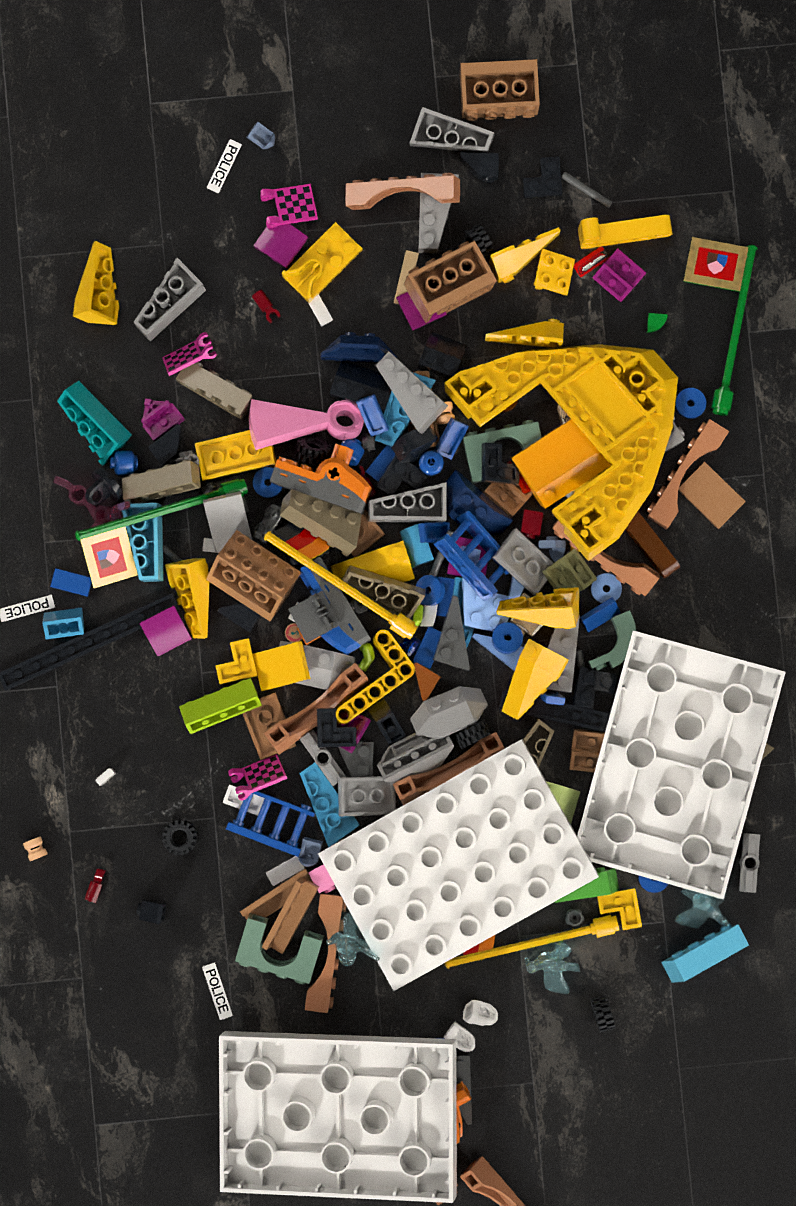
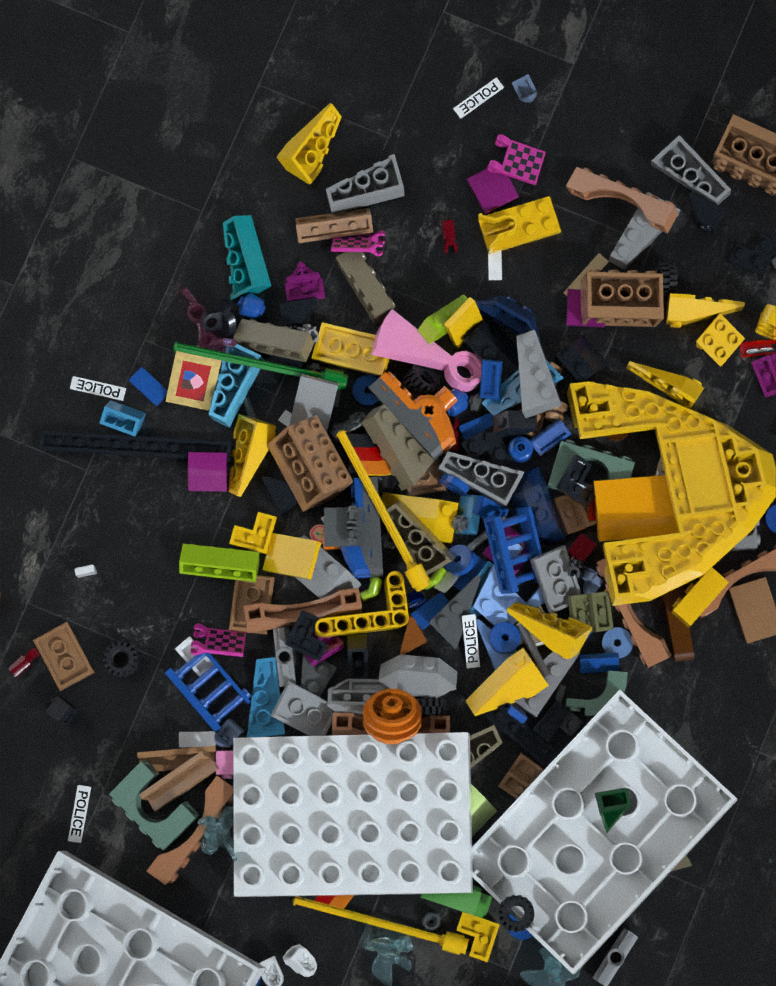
camera: 35 degrees right, 5 degrees down
(127, 861) = (63, 656): none -> medium nougat tile
(158, 350) = (334, 225): none -> medium nougat fence
(304, 382) = (433, 326): none -> lime brick
(321, 377) = (463, 322): none -> yellow tile
(390, 526) = (454, 484): none -> blue piece
(414, 557) = (460, 523): none -> dark grey plate
(454, 759) = (398, 713): none -> orange wheel
(478, 656) = (471, 641): none -> white sticker
(535, 540) = (577, 565): none -> black plate
(540, 636) = (534, 651): none -> dark grey bar
(647, 861) = (519, 925): none -> black tyre
(657, 511) = (699, 597): none -> yellow brick
(681, 735) = (612, 805): none -> dark green slope

